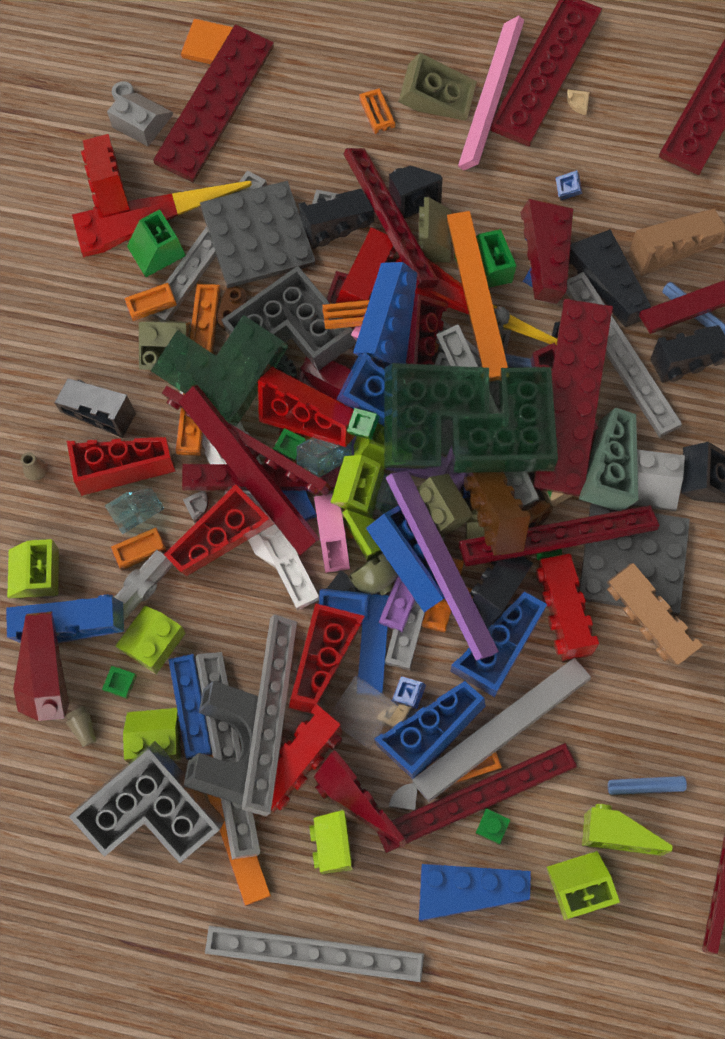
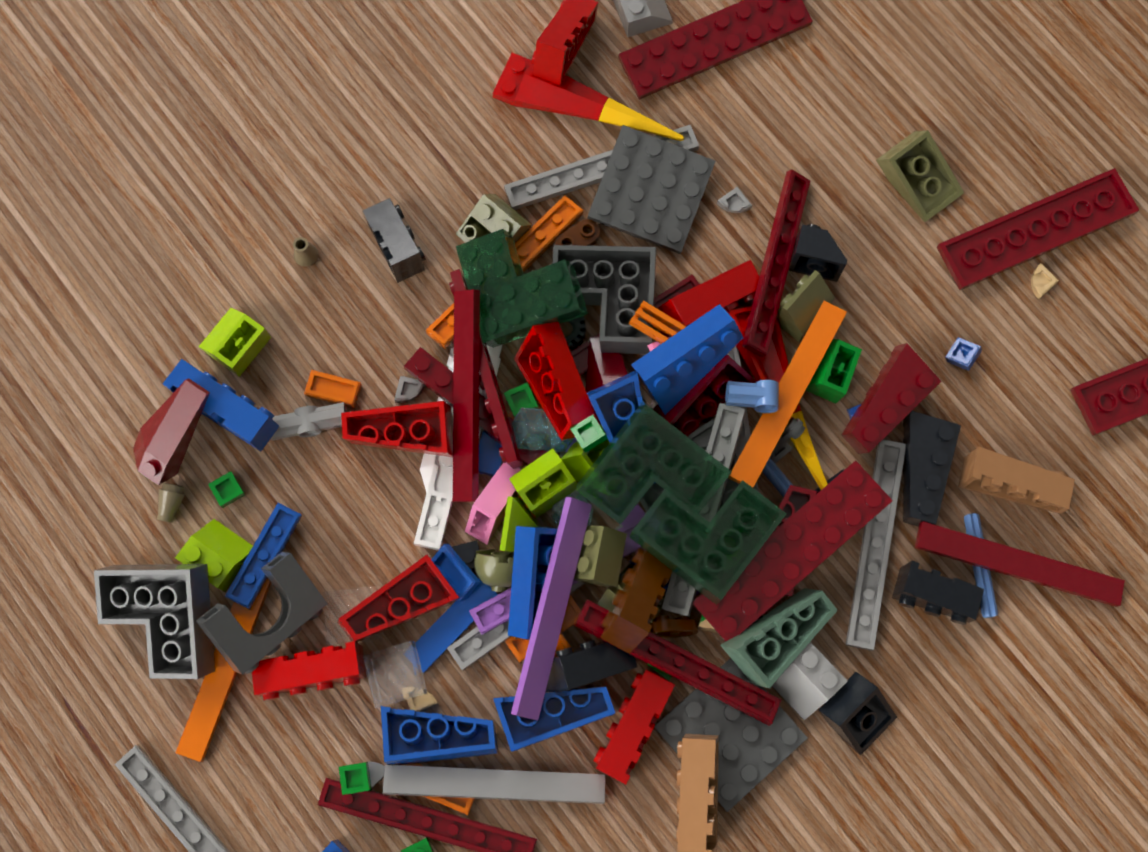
camera: 35 degrees right, 5 degrees up
(118, 462) = (371, 302): red wedge -> none
(133, 508) = (353, 352): clear light blue slope -> none
(150, 301) = (511, 182): orange tile -> none
(151, 639) = (279, 473): lime slope -> none
(154, 244) = (557, 133): green slope -> none
(226, 747) = (258, 619): light grey plate -> none
(269, 716) = (313, 617): light grey plate -> none
(332, 843) = (280, 763): lime slope -> none
(335, 217) = (731, 227): black wedge -> none
(344, 790) = (326, 728): dark red wedge -> none
(382, 125) = (845, 171): orange tile -> none
(398, 807) = (355, 778): none -> green plate
(409, 692) = (445, 689): tile -> none
(460, 307) = (759, 395): none -> medium blue piece
(491, 93) = (967, 214): bright pink tile -> none

